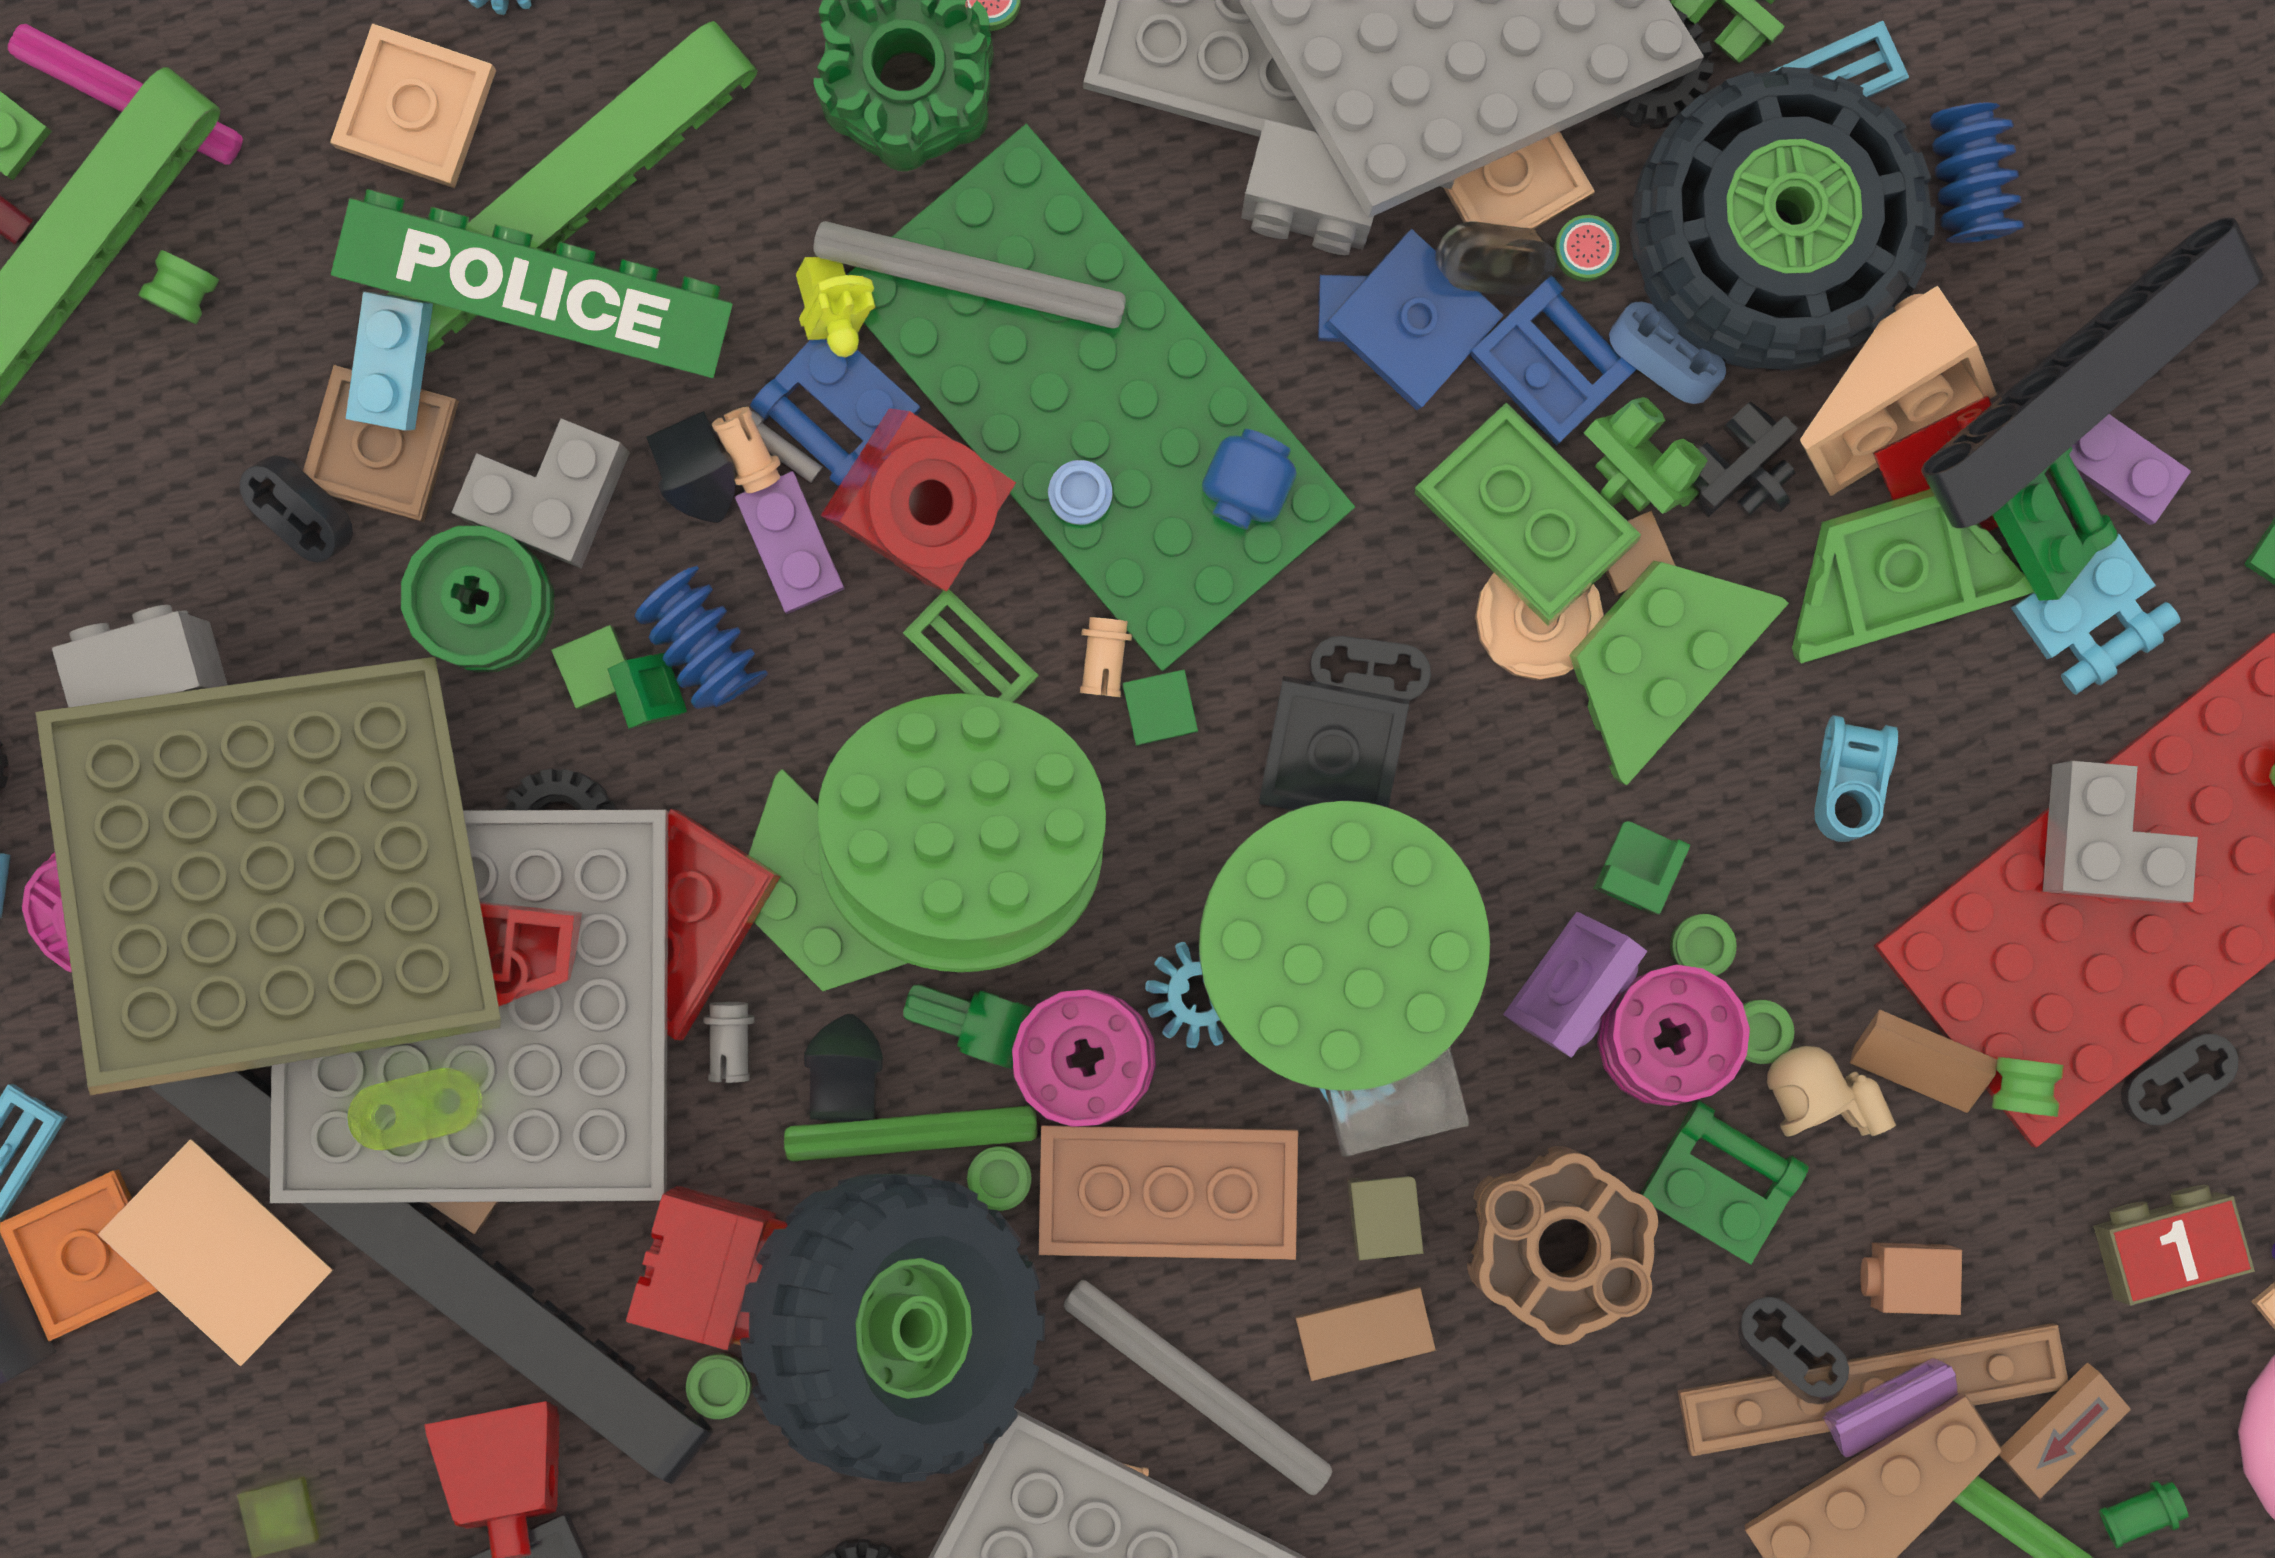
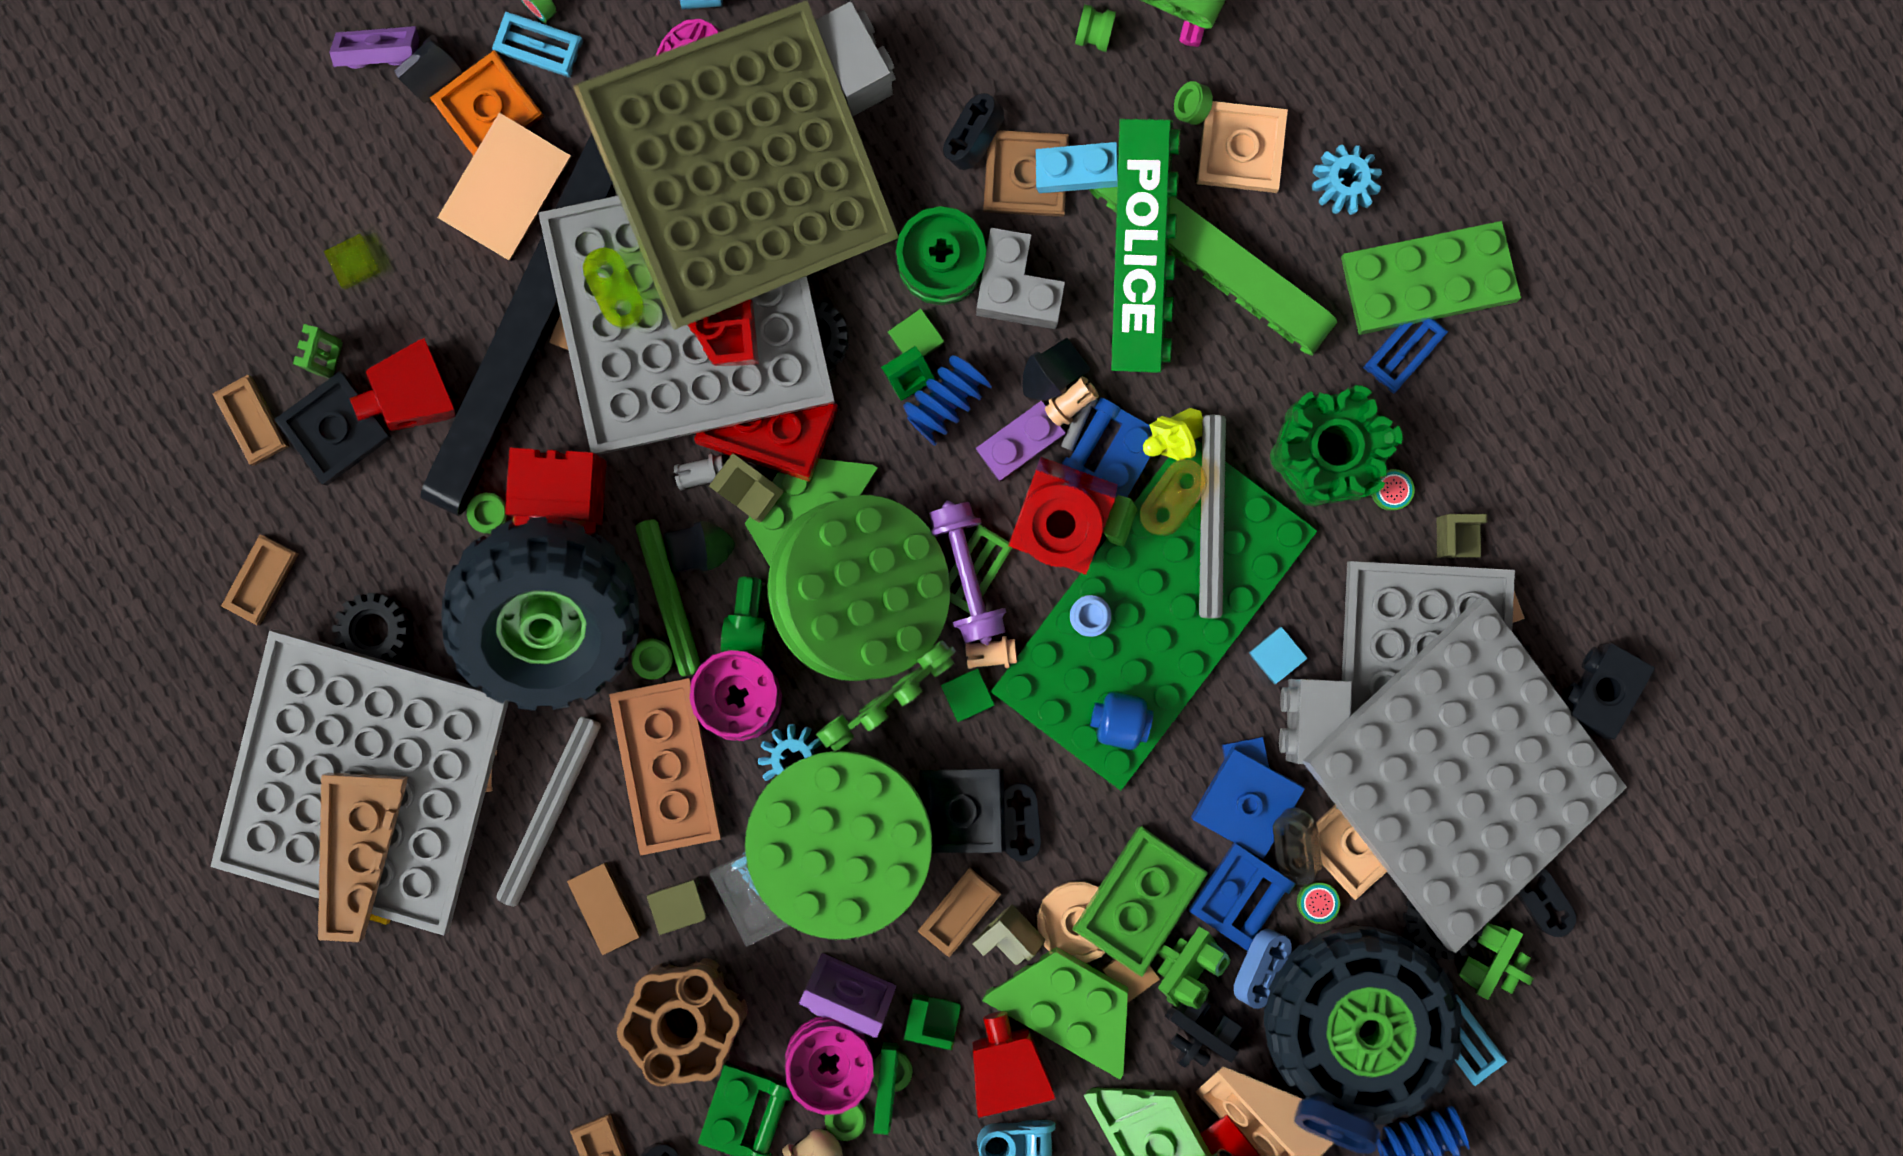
camera: 90 degrees right, 0 degrees up
(329, 164) = (1193, 103): none -> bright green tile
(769, 975) = (746, 488): none -> olive panel
(889, 669) = (952, 521): none -> medium lavender piece
(924, 329) = (1172, 496): none -> clear yellow plate
(945, 414) = (1120, 520): none -> bright green tile
(1129, 793) = (936, 661): none -> bright green plant
(1201, 225) = (1277, 655): none -> medium azure tile
(1486, 791) = (959, 912): none -> medium nougat tile
(1538, 719) = (1012, 935): none -> olive panel
(1727, 957) = (886, 1088): none -> green tile
(1736, 769) = (1008, 1069): none -> red torso
(1922, 288) = (1339, 1127): none -> dark blue plate

